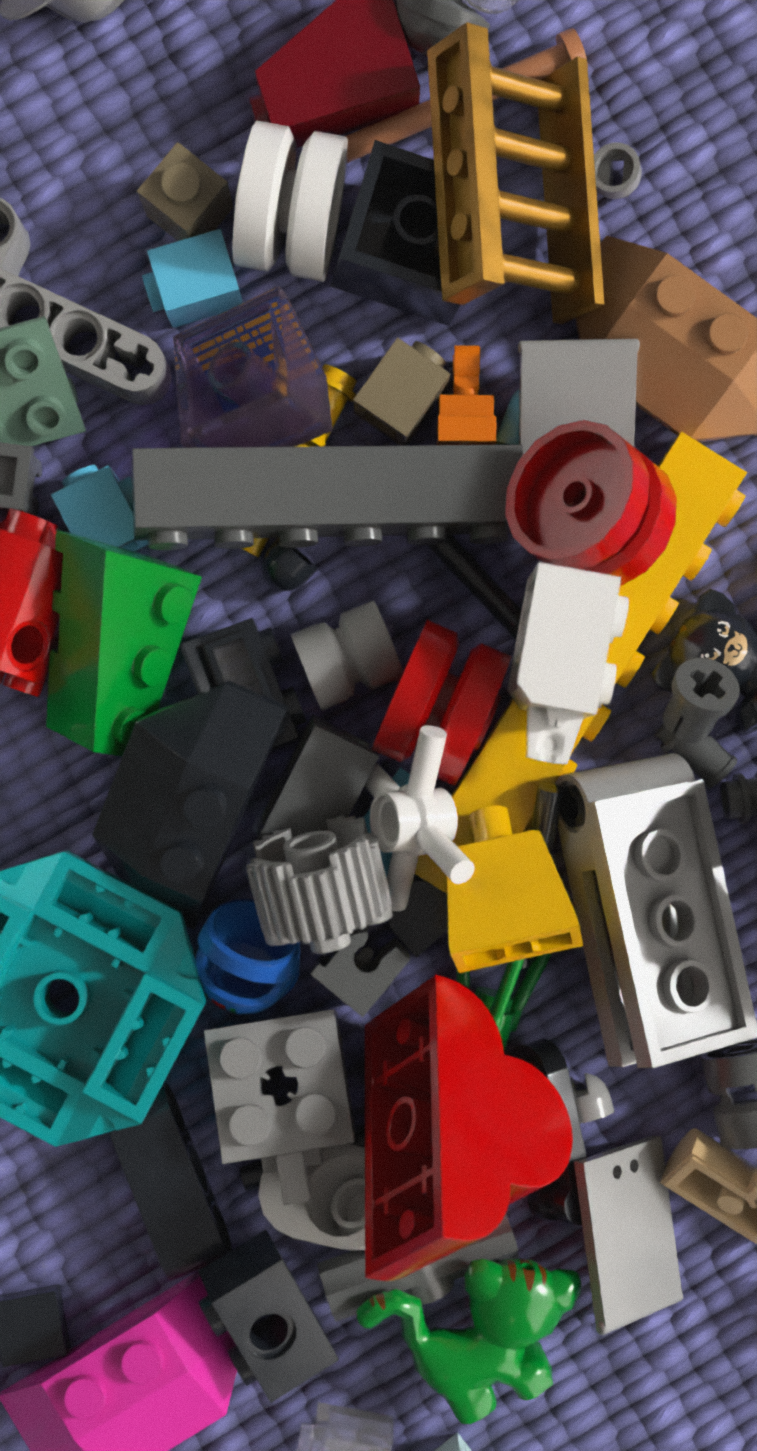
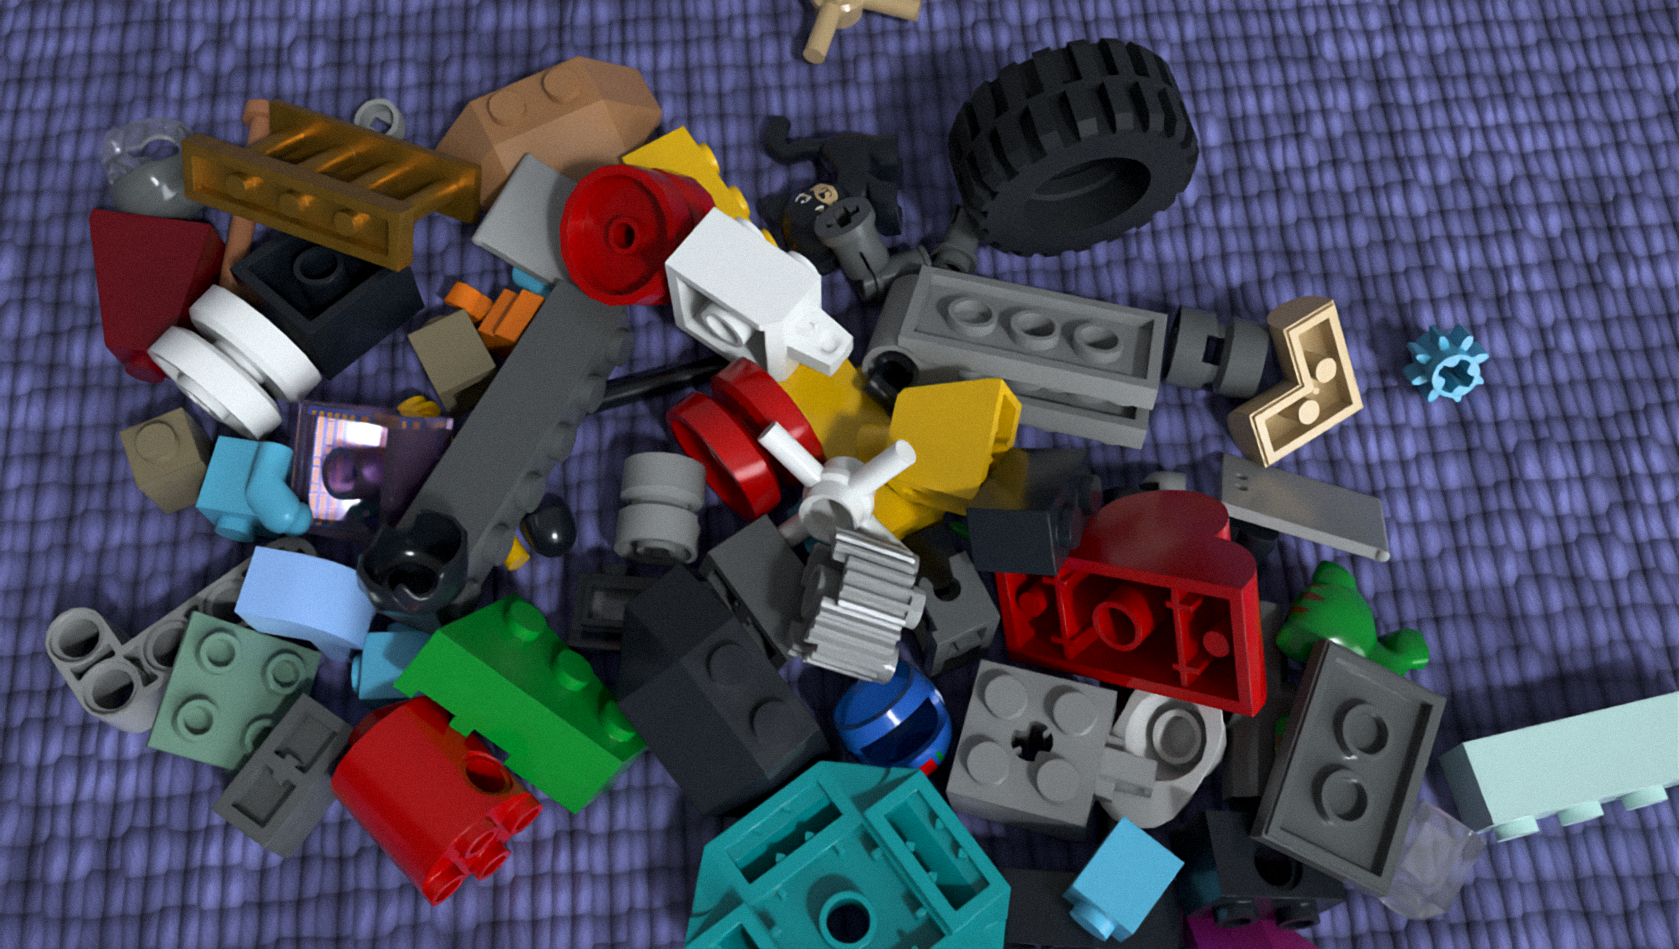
camera: 65 degrees left, 20 degrees down
(104, 405) = (306, 601): none -> light blue brick
(154, 495) = (415, 566): none -> black hair
(182, 313) = (271, 497): none -> medium azure arm
(190, 1211) = (1121, 882): none -> medium azure brick
(382, 1367) = (1349, 768): none -> dark grey tile
(471, 1007) = (1033, 510): none -> black brick

